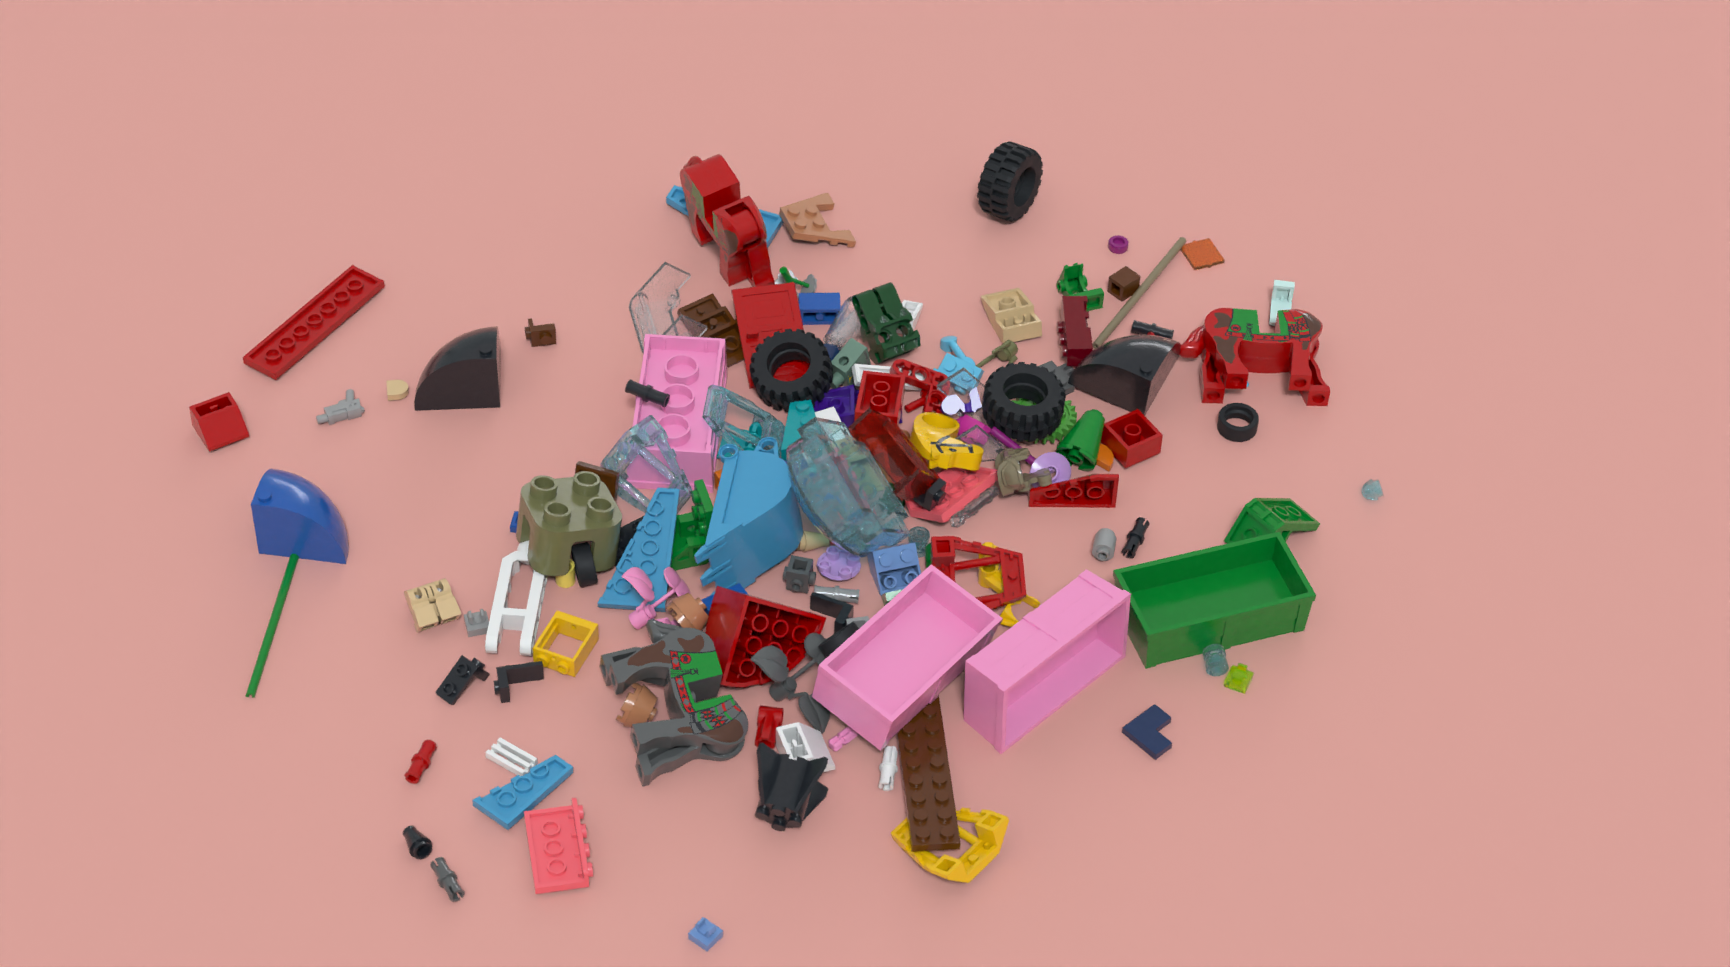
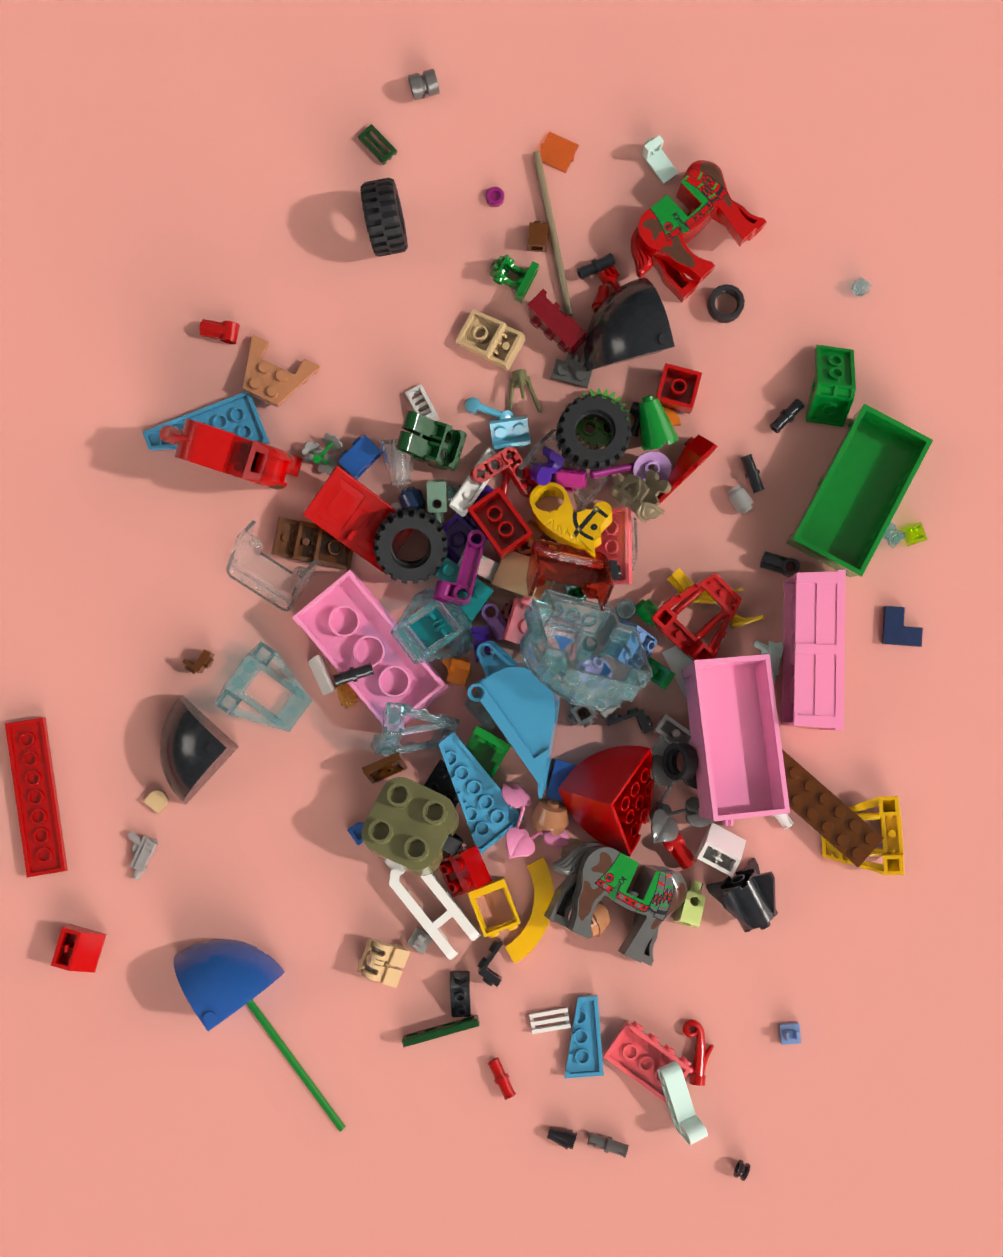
camera: 45 degrees left, 40 degrees up
(415, 689) = (440, 1030): none -> dark green tile
(549, 884) = (680, 1103): none -> light aqua beam
(565, 364) = (234, 689): none -> clear light blue windscreen
(574, 597) = (464, 871): none -> red slope
(576, 688) = (537, 923): none -> yellow tile
(585, 895) = (701, 1055): none -> red plant
(621, 411) = (322, 675): none -> white slope
(621, 429) = (346, 696): none -> clear yellow cone
(727, 766) = (691, 914): none -> yellowish green torso
(793, 416) = (447, 591): none -> magenta piece
(807, 177) = (224, 331): none -> red piece
(1060, 169) = (388, 156): none -> dark green tile
(1135, 147) = (423, 84): none -> dark grey wheel
(1209, 523) = (787, 416): none -> black pin

